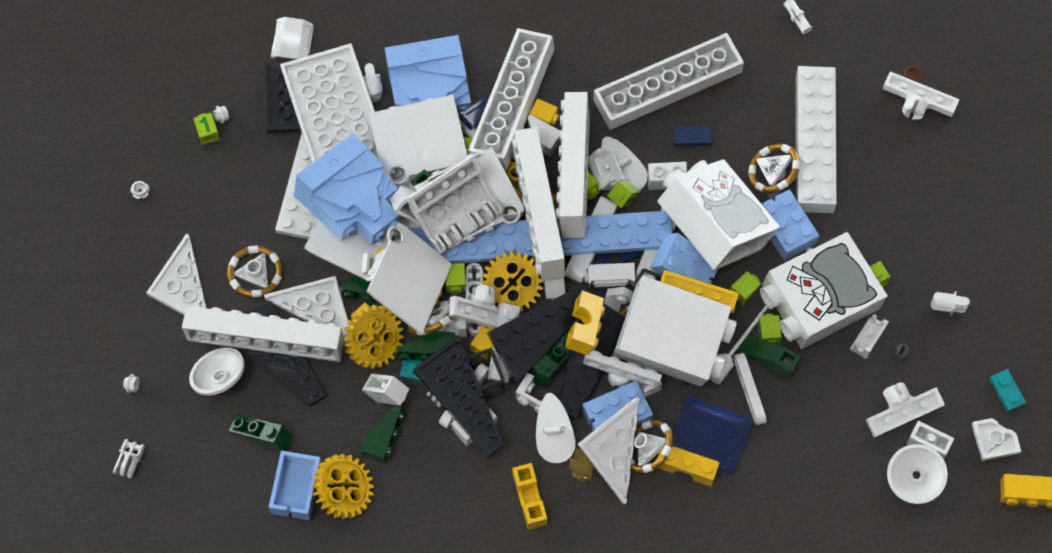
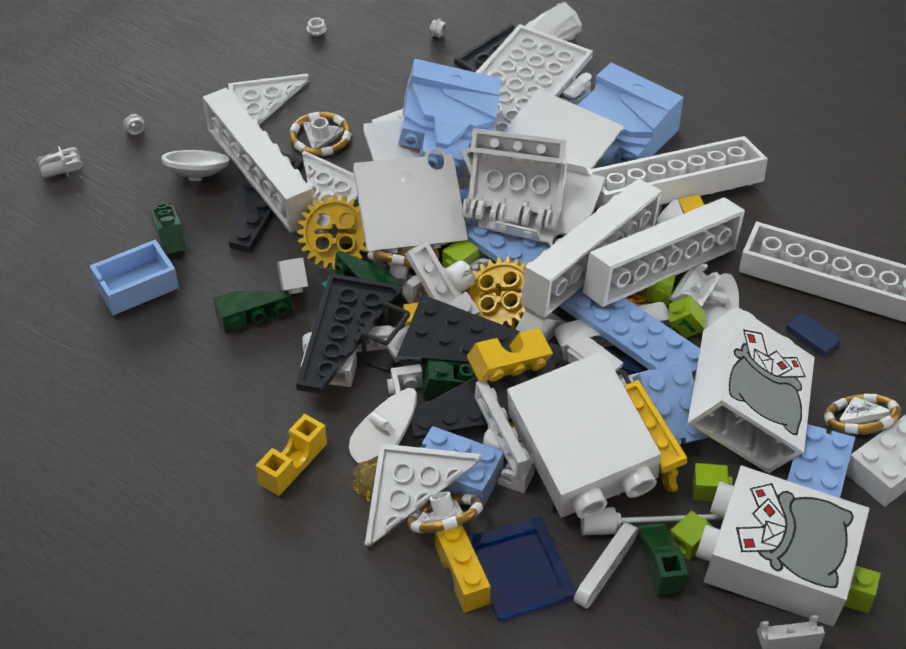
camera: 50 degrees right, 20 degrees down
(206, 128) = (414, 27): lime brick -> none
(344, 504) = (181, 295): yellow gear -> none

